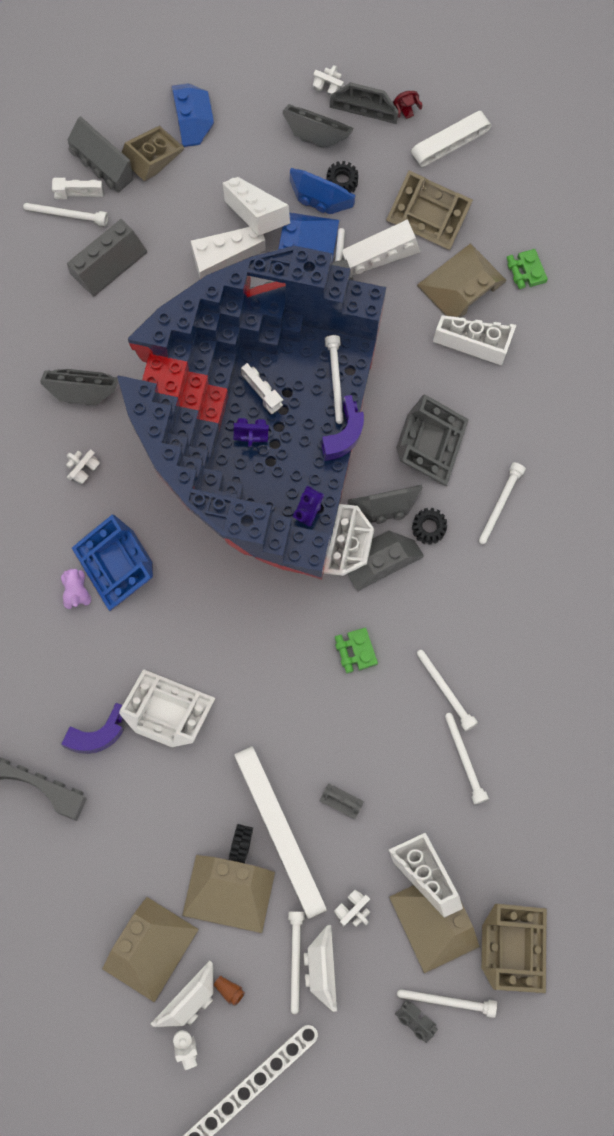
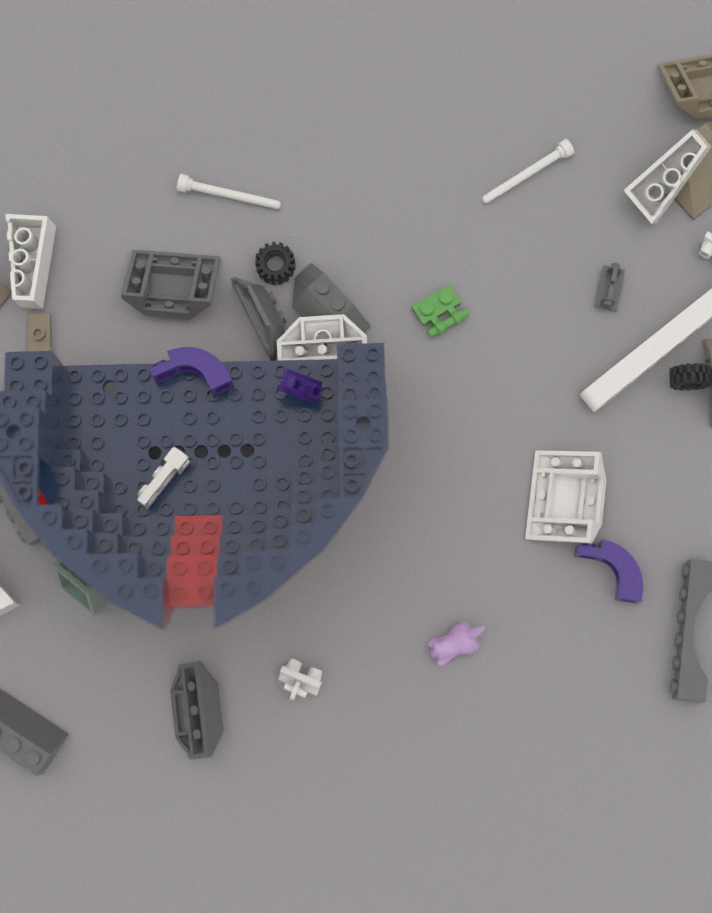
camera: 100 degrees left, 5 degrees up
(114, 561) = (410, 604): blue slope -> none
(251, 432) = (224, 476): dark purple hips -> none
(333, 344) = (85, 408): white piece -> none
(411, 335) = (39, 332): none -> dark tan plate
(466, 719) = (487, 177): white piece -> none

